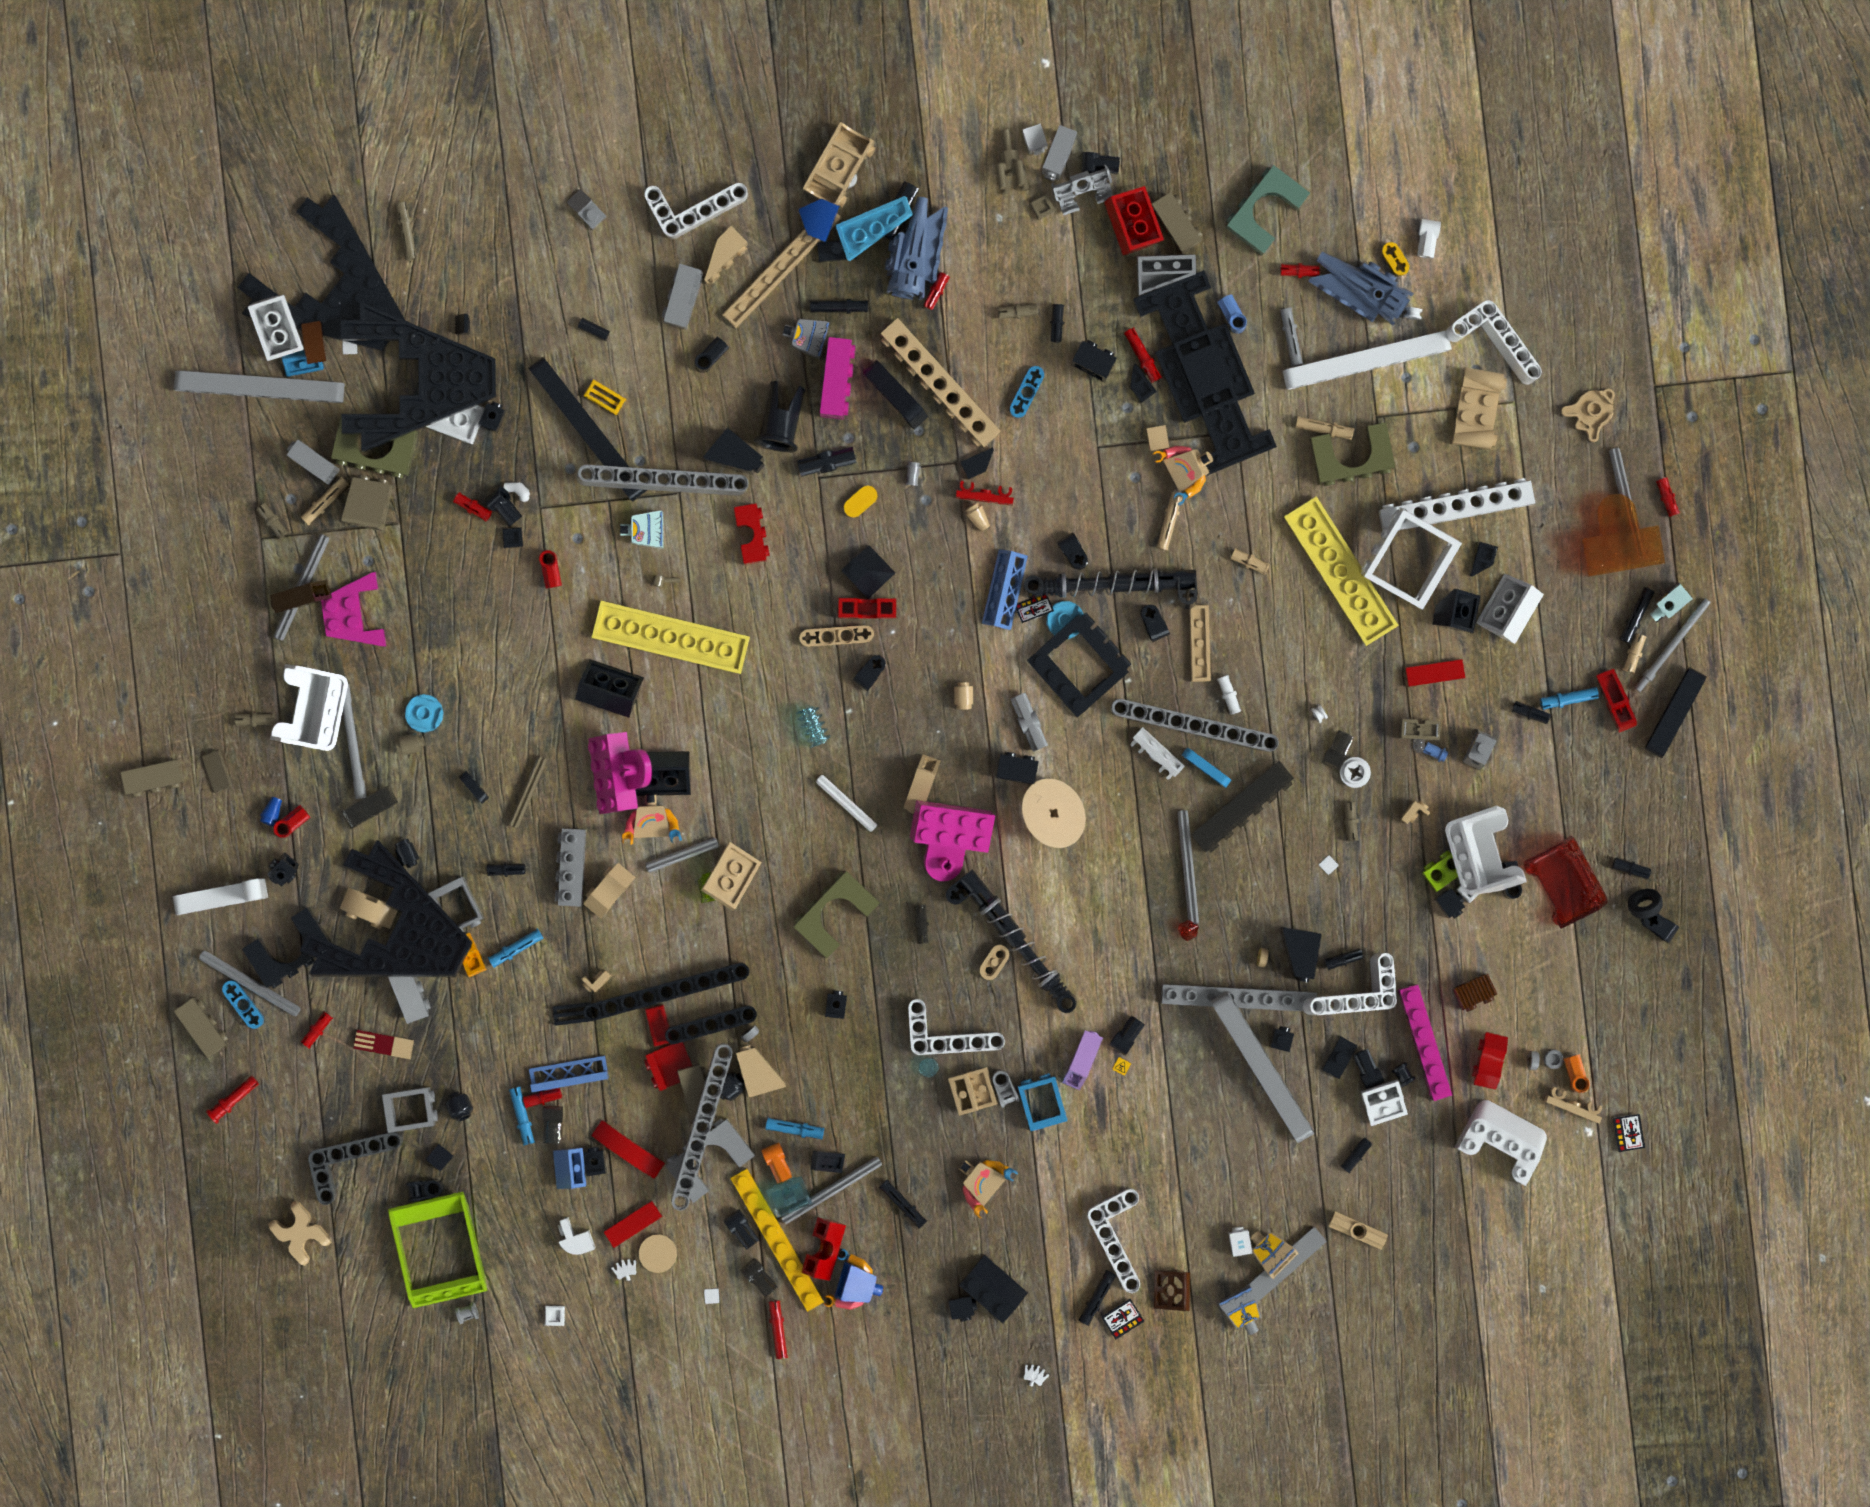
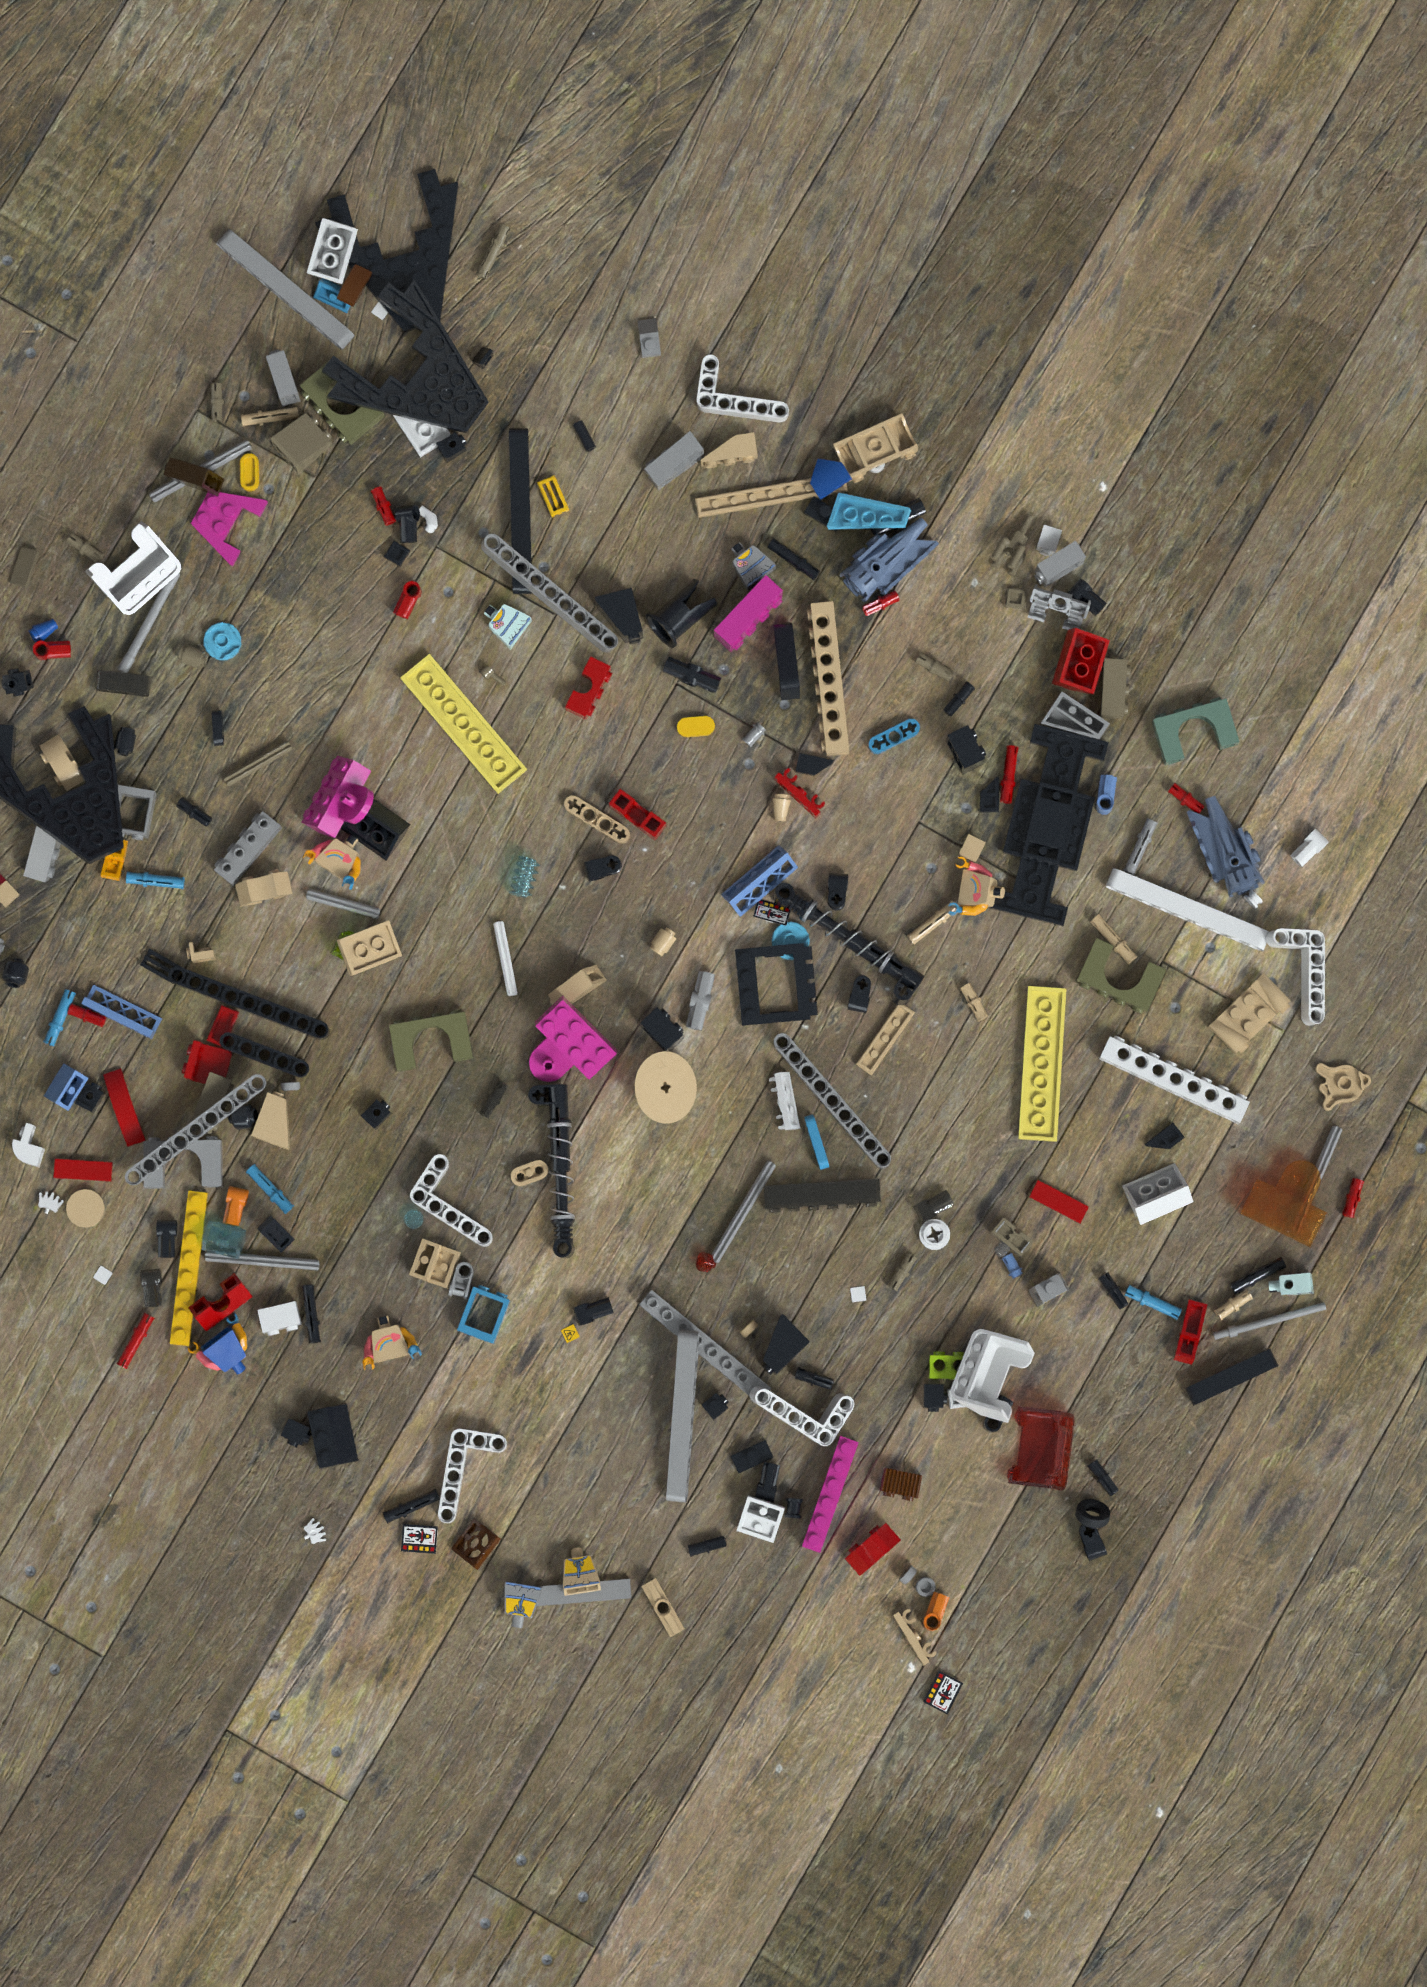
camera: 40 degrees right, 5 degrees down
(342, 558) = (249, 472): none -> yellow tile
(552, 1124) = (82, 1038): clear smoke piece -> none
(609, 688) = (383, 728): black slope -> none
(712, 354) = (664, 523): black piece -> none
(868, 572) = (660, 786): black slope -> none
(880, 1226) = (279, 1317): none -> white brick
(1082, 1060) = (541, 1304): lavender slope -> none
(1229, 694) = (878, 1097): white pin -> none
(1240, 1241) = (560, 1545): white brick -> none
(1319, 713) = (940, 1165): white bush -> none
(1399, 257) = (1275, 846): yellow beam -> none
(1411, 812) = (954, 1301): tan bracket -> none
(1436, 573) = (1120, 1120): white window -> none
(1457, 611) = (1113, 1164): black slope -> none
(1507, 1133) = (843, 1620): white windscreen -> none

